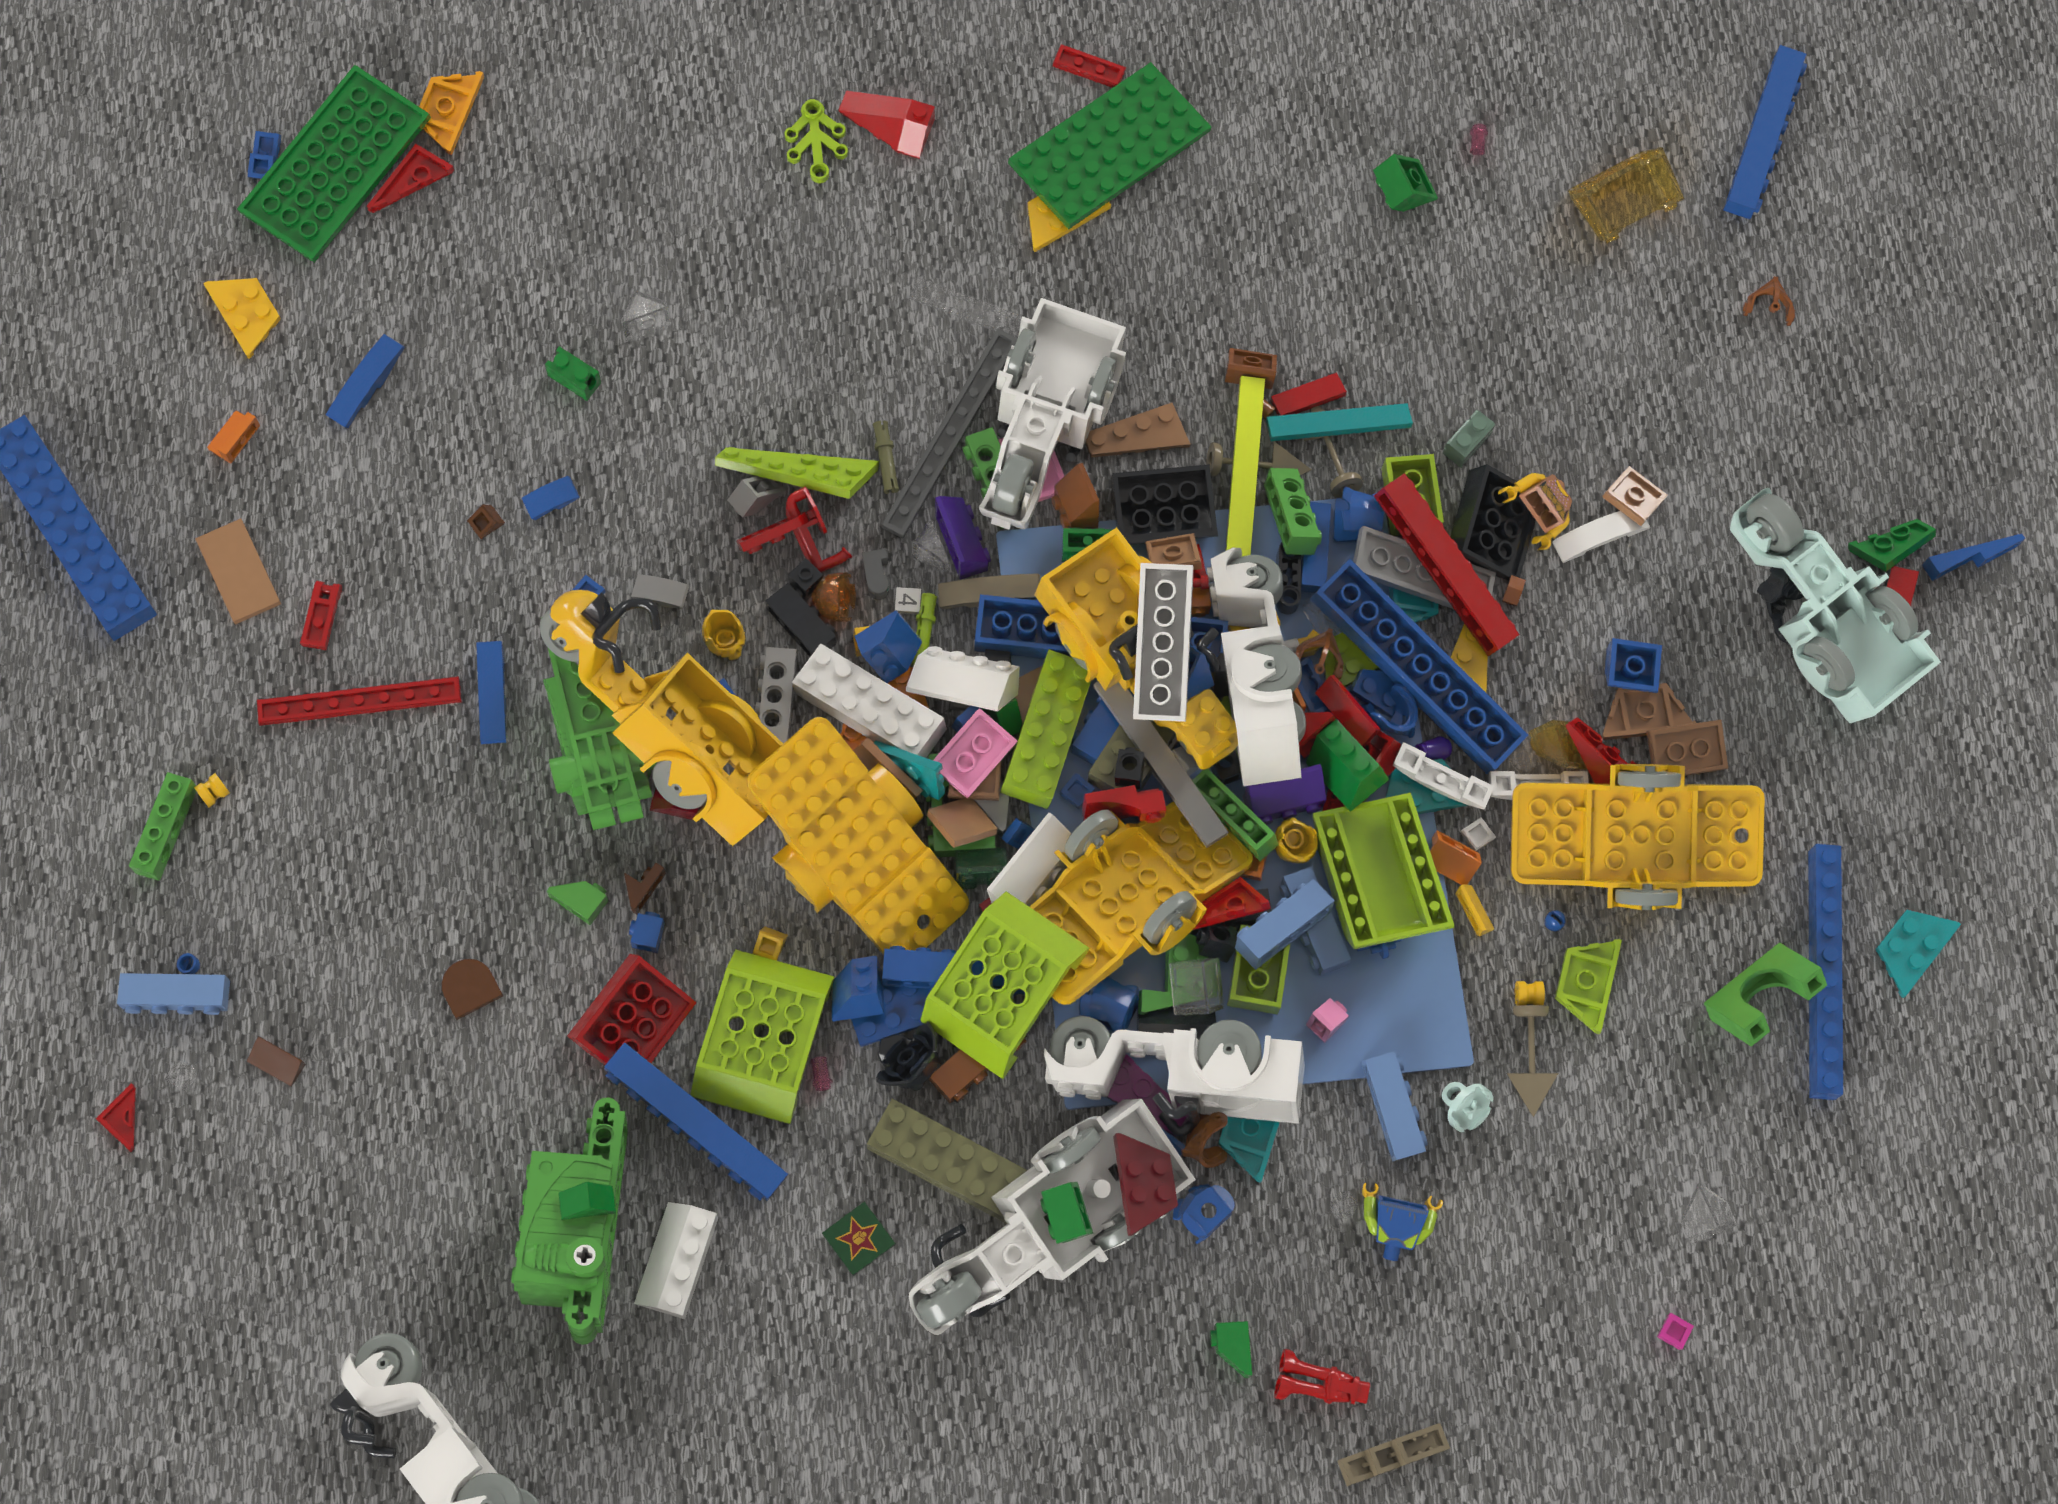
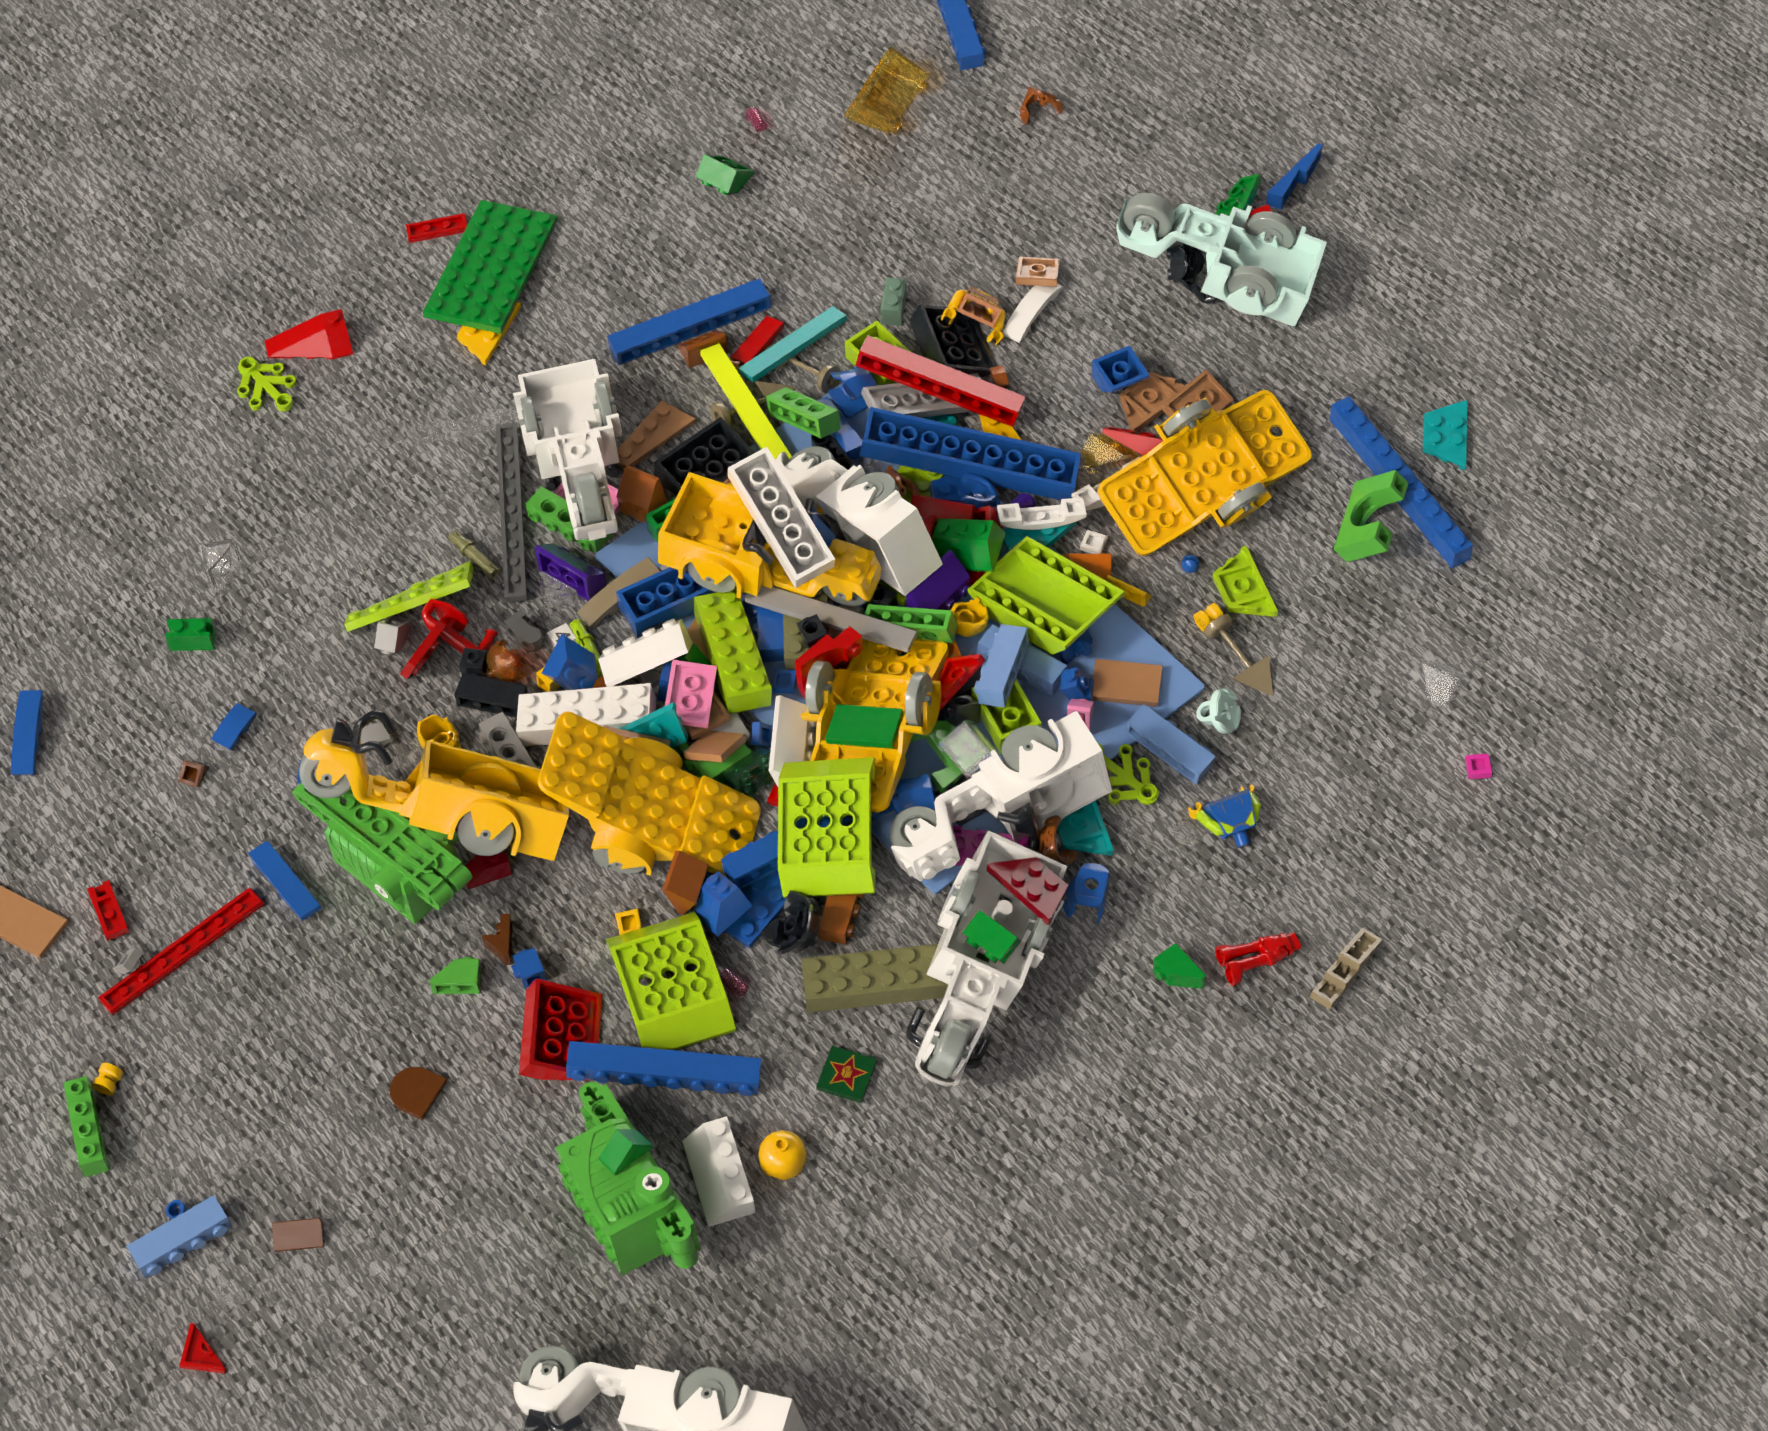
camera: 25 degrees left, 15 degrees down
(305, 682) = (129, 961): none -> light grey plate
(745, 1280) = (782, 1155): none -> yellow cylinder
(840, 943) = (684, 881): none -> dark orange slope
(1105, 904) = (864, 726): none -> green tile
(1257, 331) = (689, 321): none -> blue brick
(1328, 1108) = (1126, 777): none -> lime plant
(1347, 984) = (1076, 684): none -> blue brick
(1399, 1011) = (1126, 682): none -> medium nougat tile

